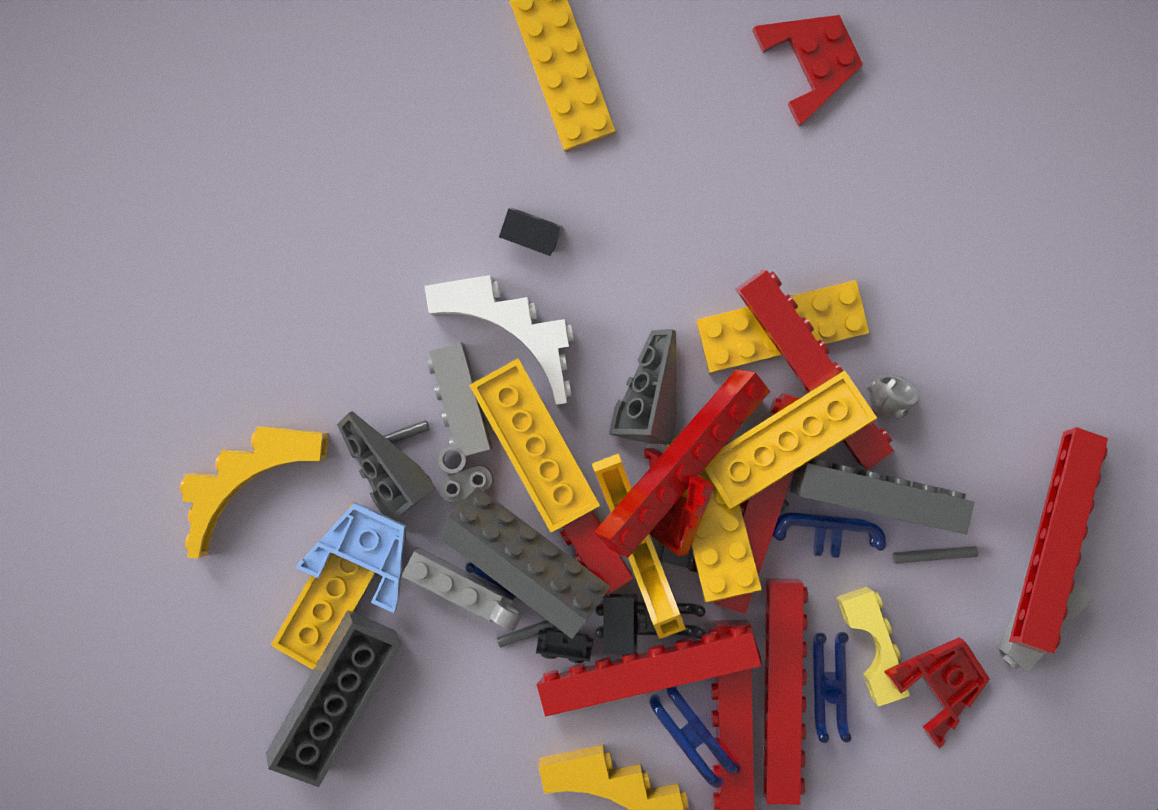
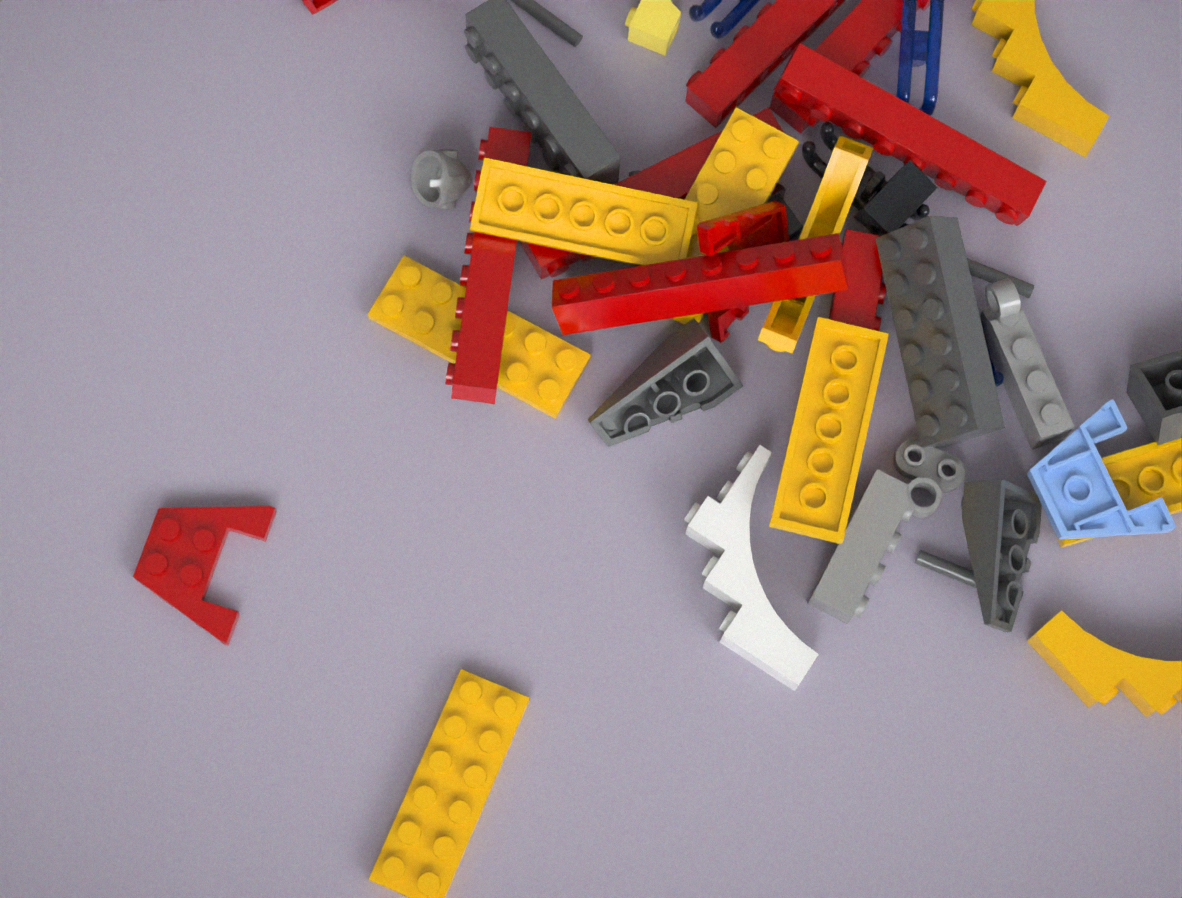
camera: 145 degrees left, 15 degrees down
(530, 231) = (639, 646): black hinge -> none
(551, 646) = (981, 241): black hinge -> none
(837, 525) = (613, 124): clear blue piece -> none

